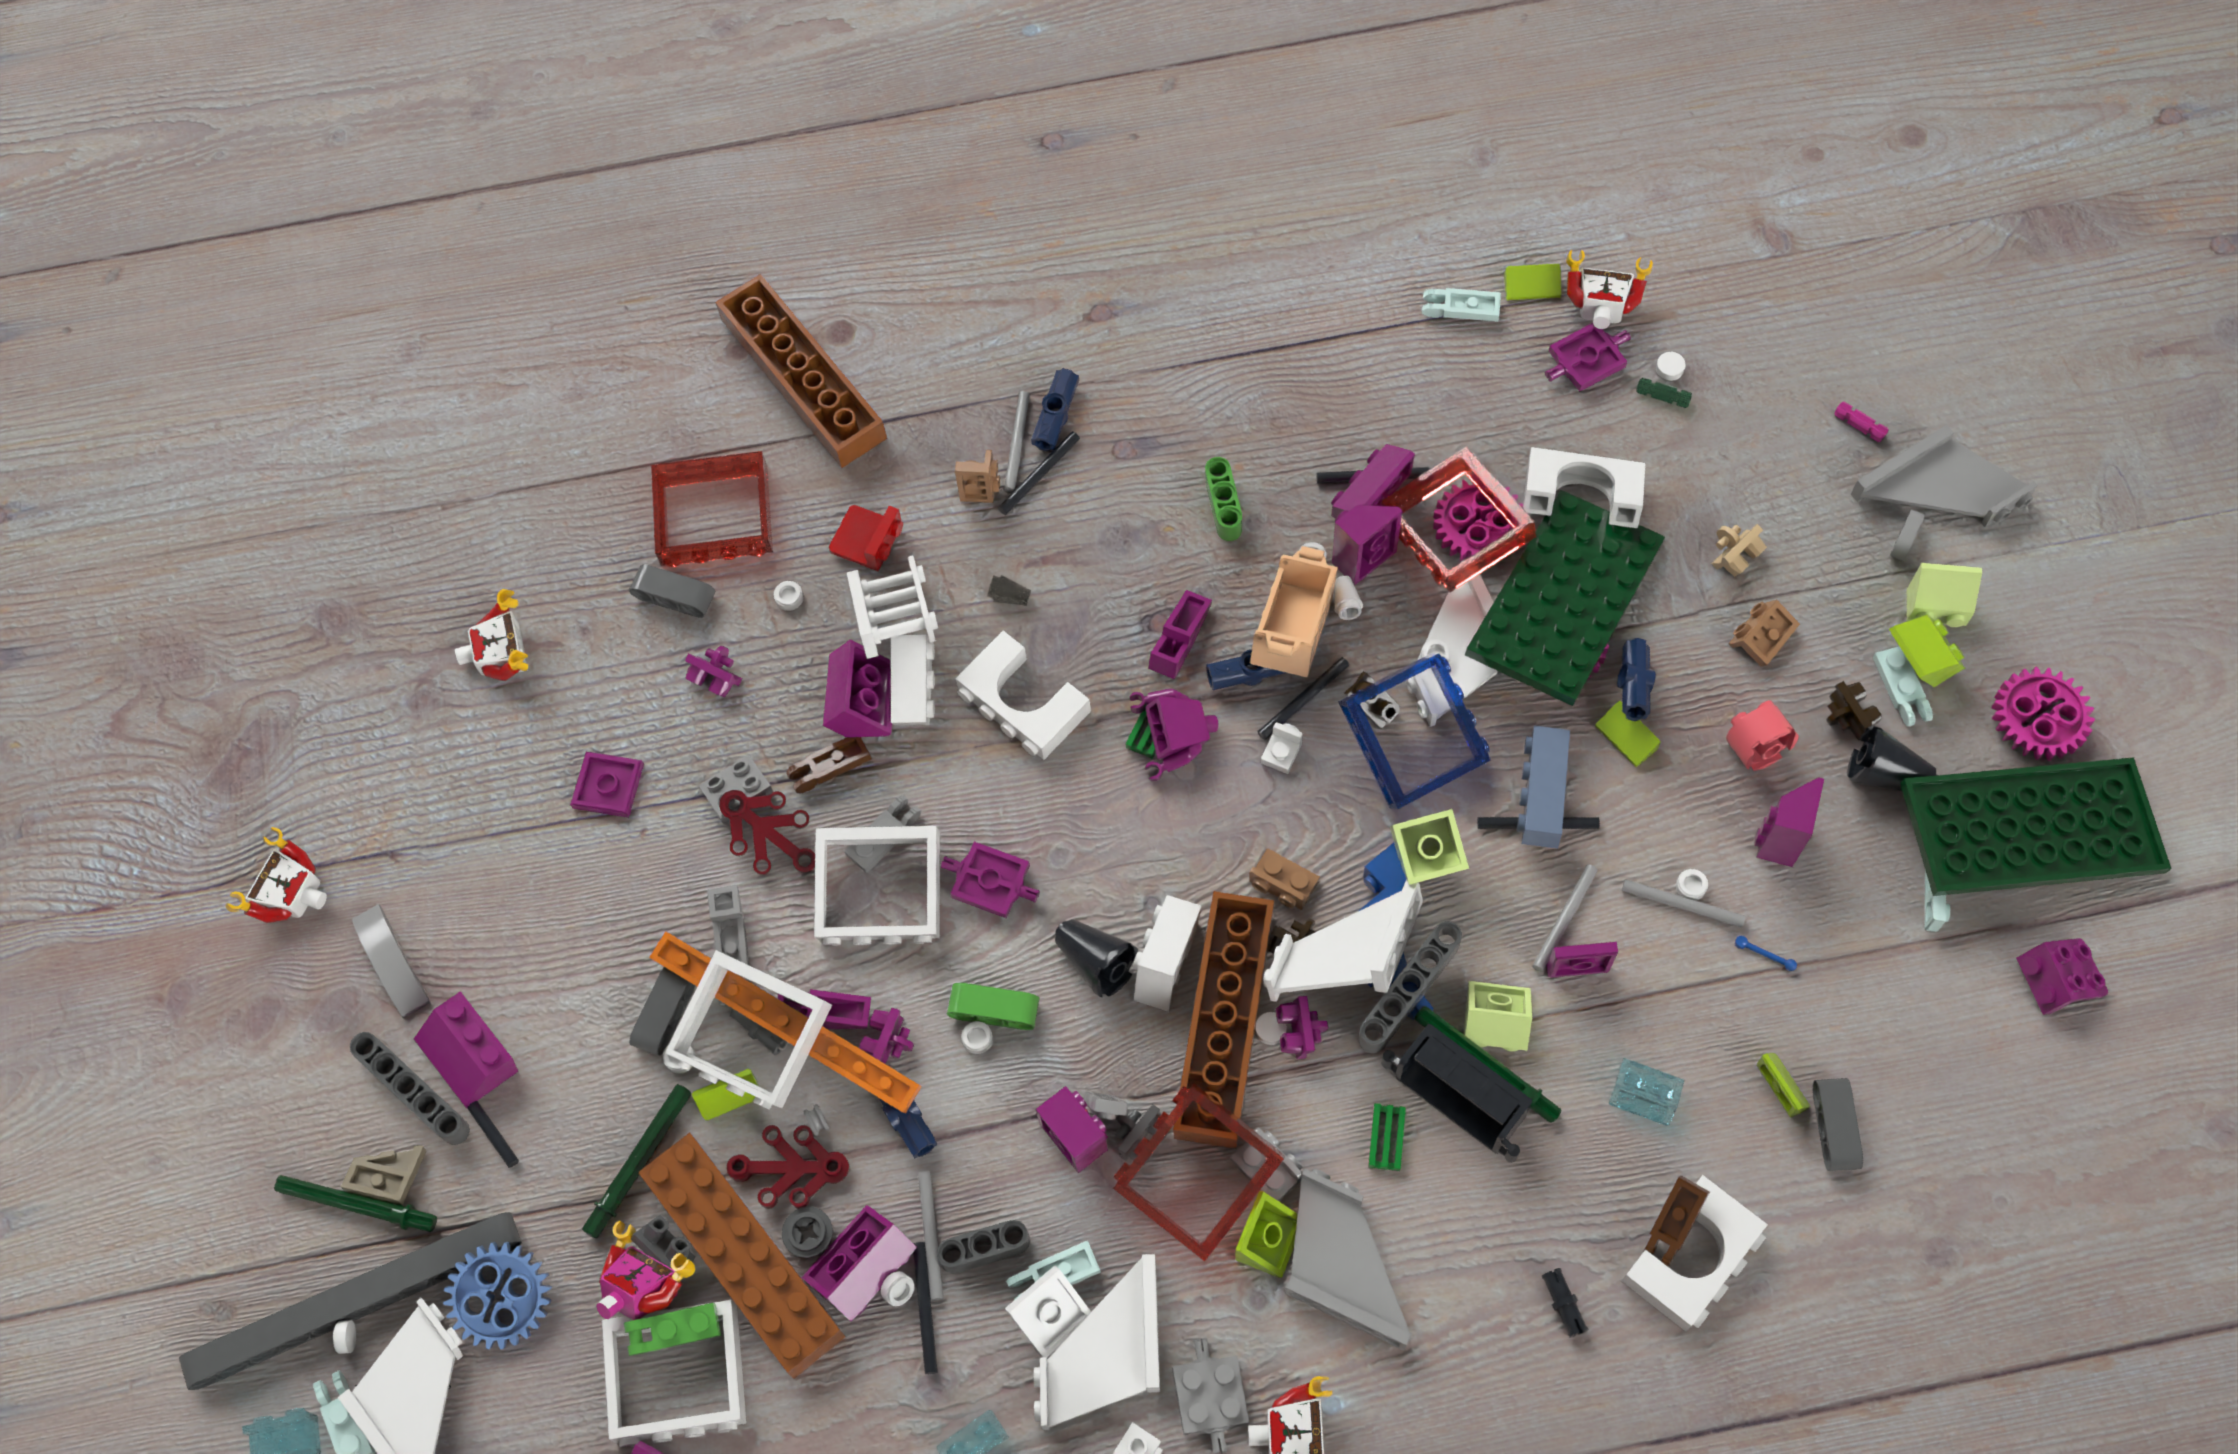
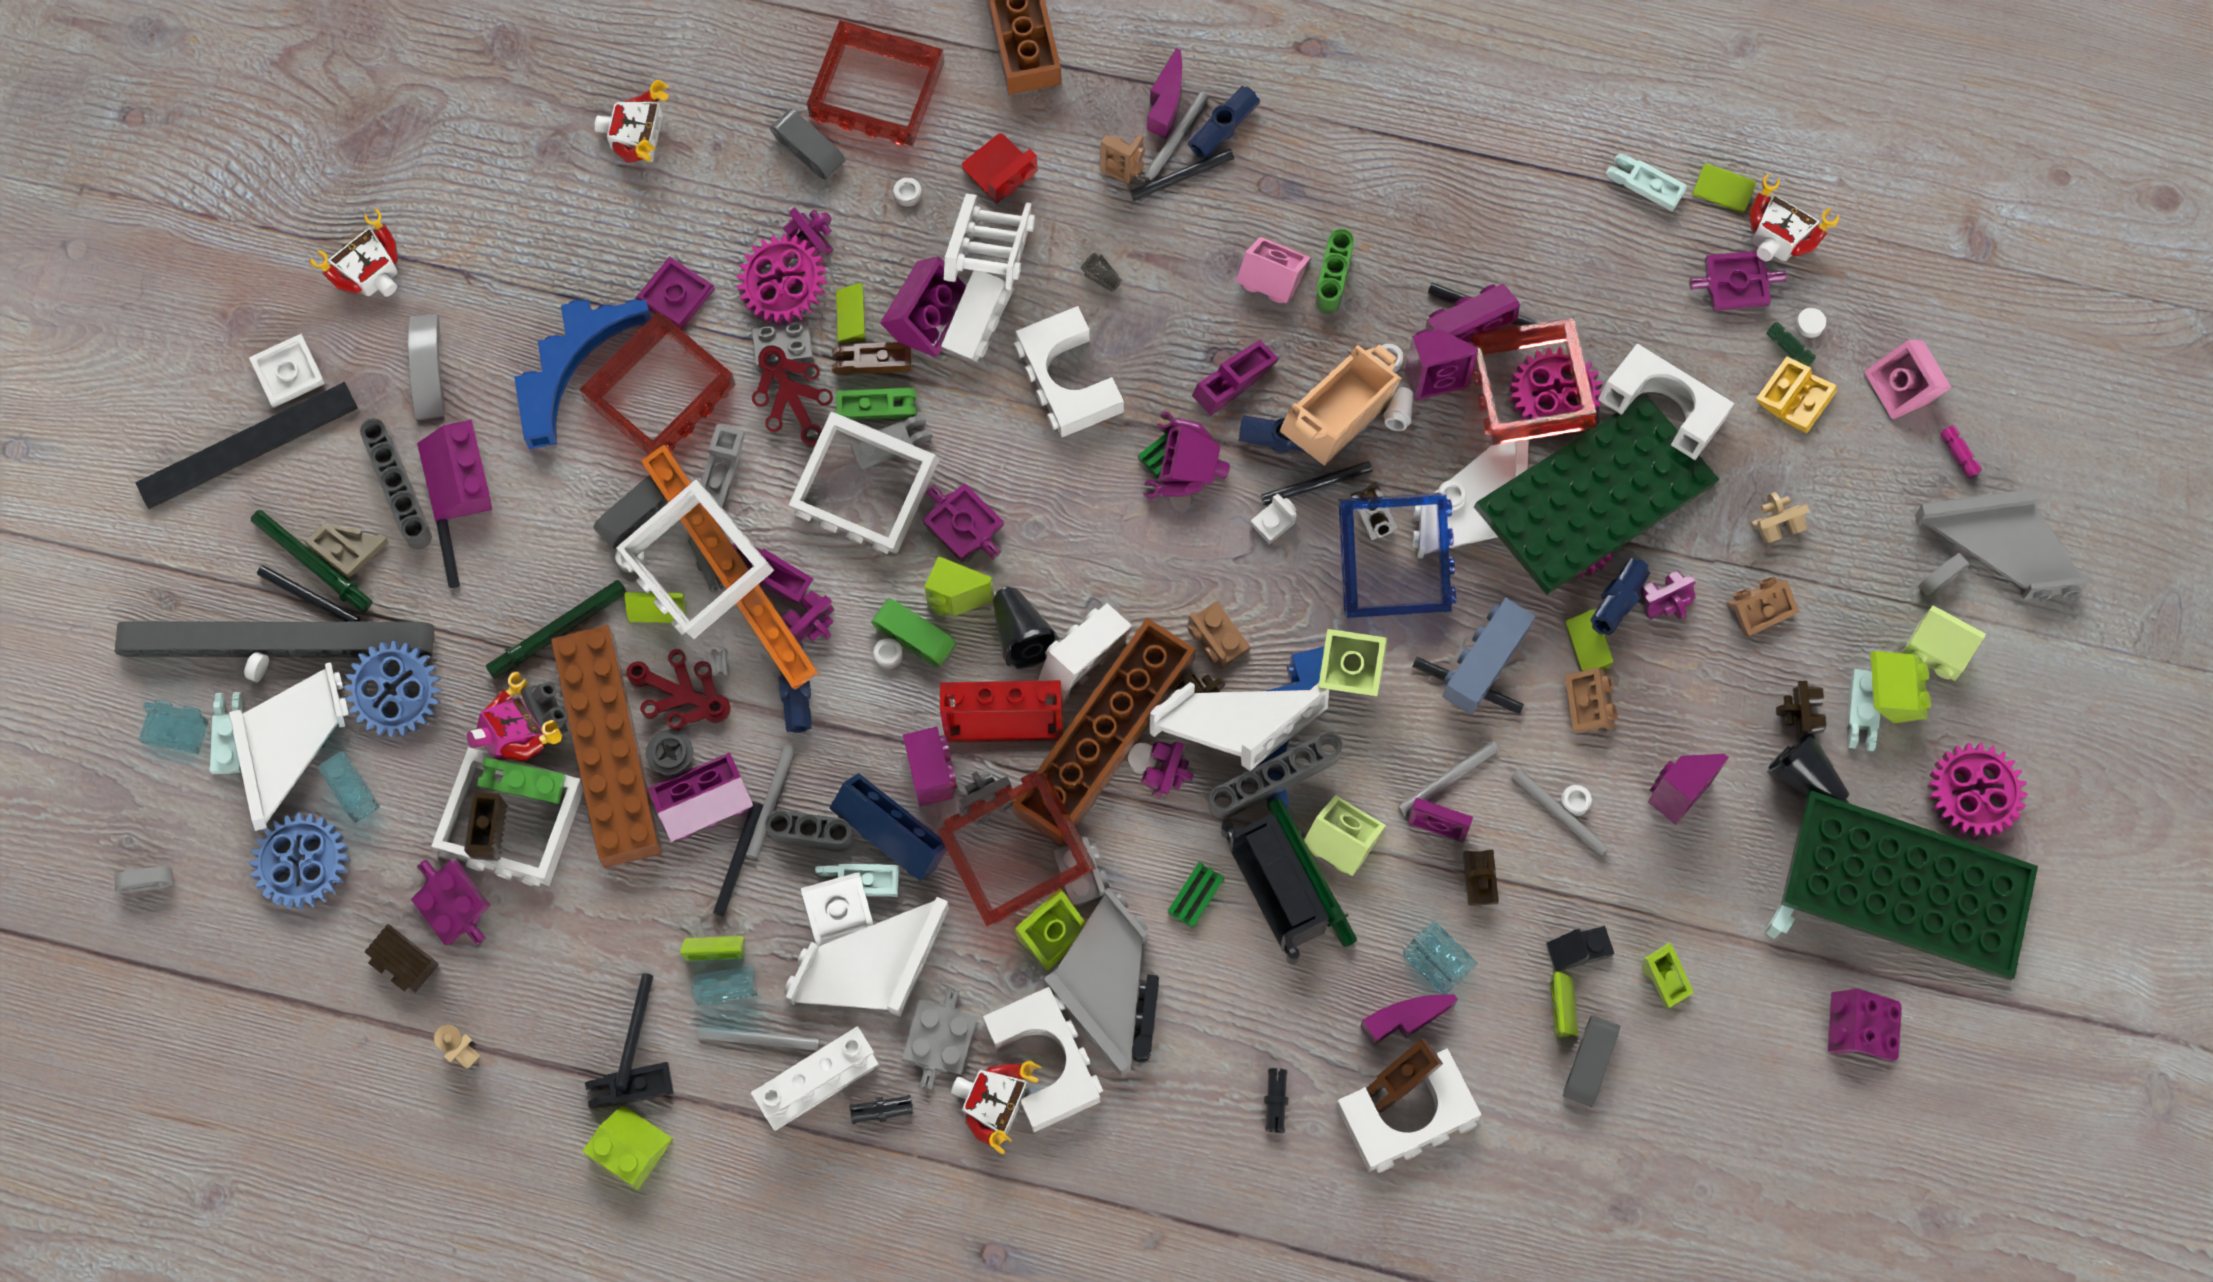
camera: 20 degrees right, 5 degrees up
(237, 1118) = (246, 445): none -> black tile
(249, 1025) = (287, 370): none -> white plate
(366, 1240) = (307, 595): none -> black bar
(495, 1416) = (348, 786): none -> clear light blue brick
(521, 892) = (561, 355): none -> blue arch
(589, 862) = (628, 357): none -> clear red window
(658, 1393) = (485, 826): none -> dark brown brick
(720, 747) = (785, 303): none -> dark pink gear
(788, 731) = (851, 314): none -> lime slope
(853, 804) = (876, 404): none -> bright green plate
(897, 1288) = (722, 832): white tile -> none
(942, 1409) = (713, 948): none -> lime slope
(991, 408) = (1166, 96): none -> magenta slope
(1016, 944) = (956, 588): none -> lime slope
(1061, 1206) = (889, 826): none -> dark blue brick
(1105, 1105) = (965, 758): light grey plate -> none
(1121, 1041) = (1001, 711): none -> red window
(1166, 523) = (1272, 270): none -> bright pink slope
(1302, 1325) = (1042, 1016): none -> white arch
(1402, 1281) = (1145, 1021): none -> black hinge
(1645, 1163) = (1406, 1016): none -> magenta slope
(1646, 997) = (1480, 877): none -> dark brown hips
(1657, 787) = (1591, 700): none -> medium nougat bracket
(1682, 661) = (1670, 599): none -> magenta hips
(1692, 434) = (1796, 395): none -> yellow slope
(1742, 942) = (1593, 869): blue hinge -> none
(1761, 736) = (1705, 696): coral brick -> none
(1769, 1022) = (1580, 948): none -> black slope
(1781, 378) = (1907, 378): none -> bright pink slope
(1864, 1010) = (1667, 974): none -> lime slope

